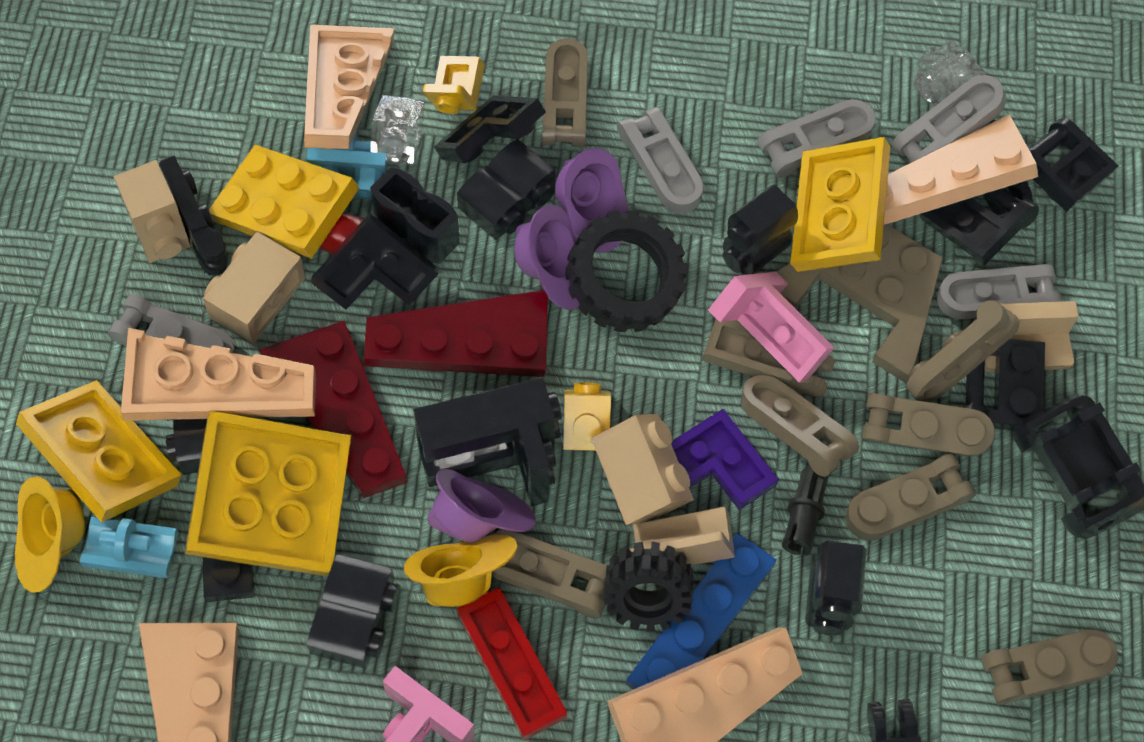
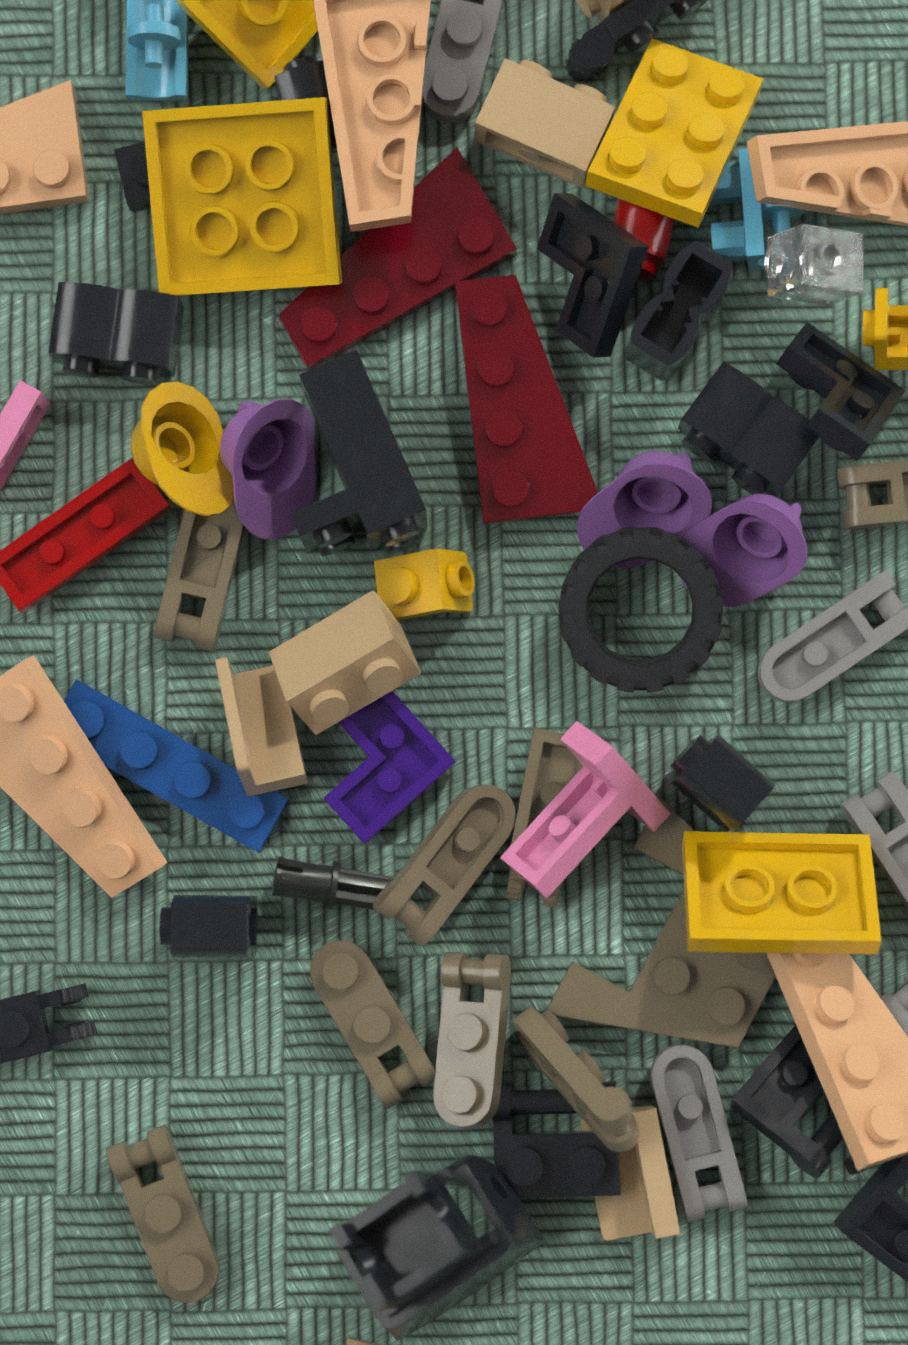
camera: 85 degrees right, 20 degrees up
(648, 567) = (184, 688): black tyre -> none

